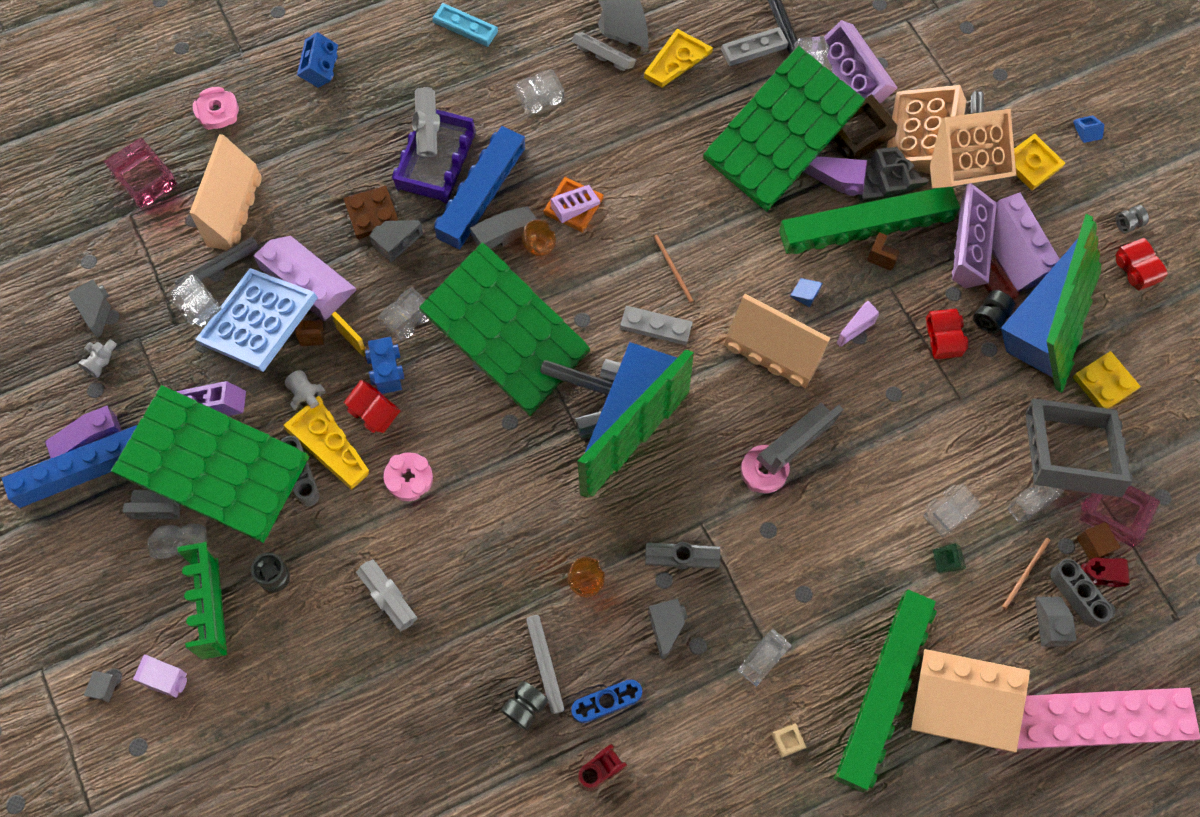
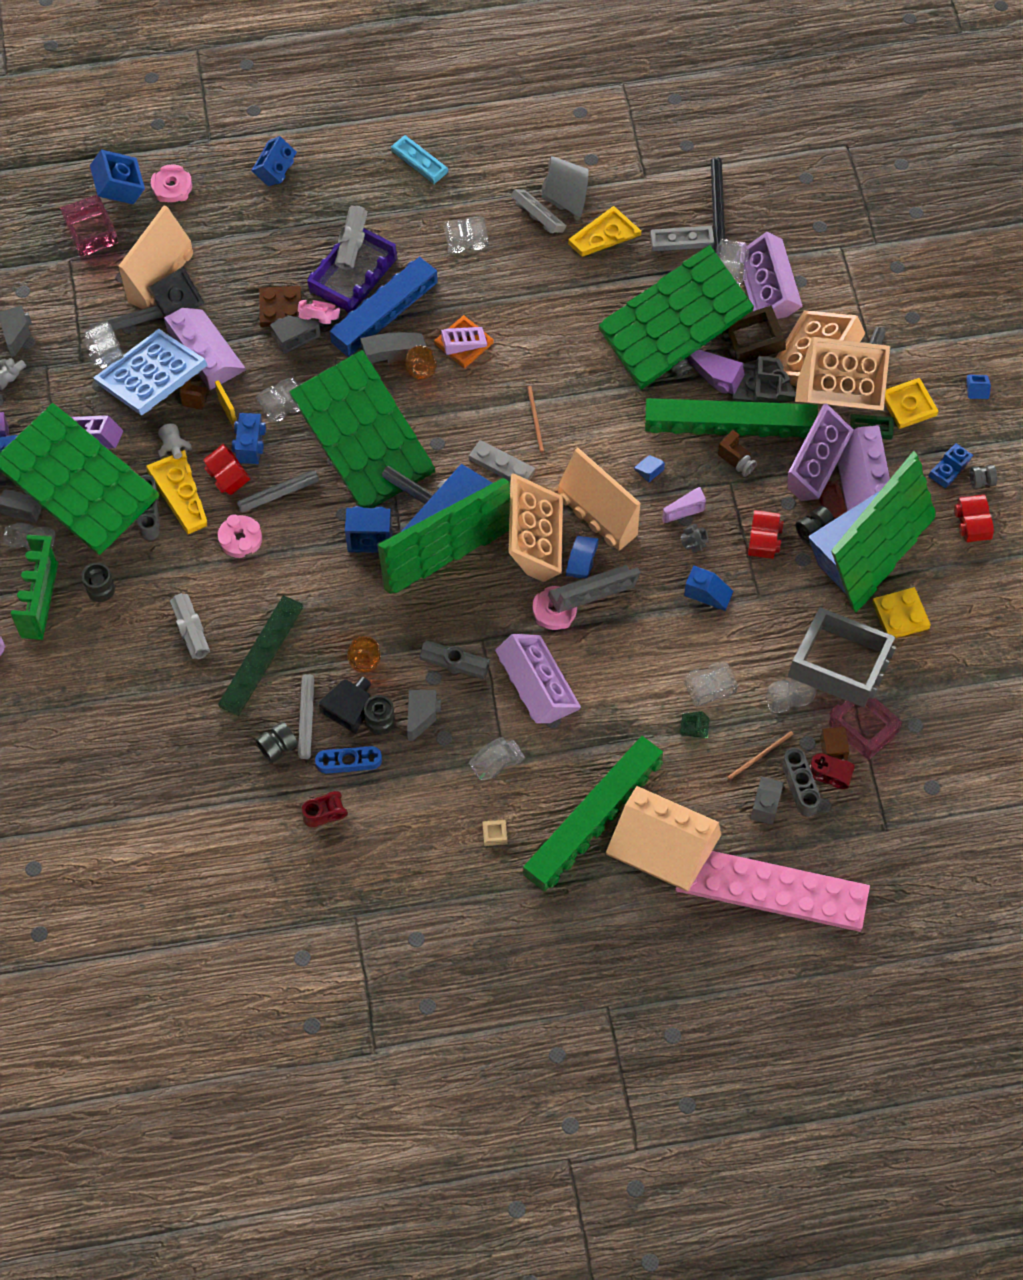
camera: 20 degrees right, 5 degrees down
(156, 114) = (117, 177): none -> blue brick
(257, 225) = (175, 292): none -> black tile
(415, 208) = (319, 310): none -> bright pink plate
(432, 415) = (277, 491): none -> dark grey axle
(473, 607) = (260, 655): none -> clear green plate
(547, 435) = (367, 528): none -> blue brick
(586, 637) = (347, 703): none -> black torso
(625, 642) = (379, 714): none -> pearl dark grey wheel
(724, 390) = (535, 528): none -> light nougat slope
(774, 406) = (581, 557): none -> blue slope
(774, 553) = (537, 678): none -> lavender slope
(802, 180) = (682, 369): none -> dark grey bush
(880, 356) = (694, 538): none -> dark grey gear
(901, 265) = (746, 466): none -> light grey bush
(911, 406) = (708, 588): none -> blue slope
(1004, 187) = (886, 431): none -> dark green tile
(1098, 207) = (950, 466): none -> blue slope

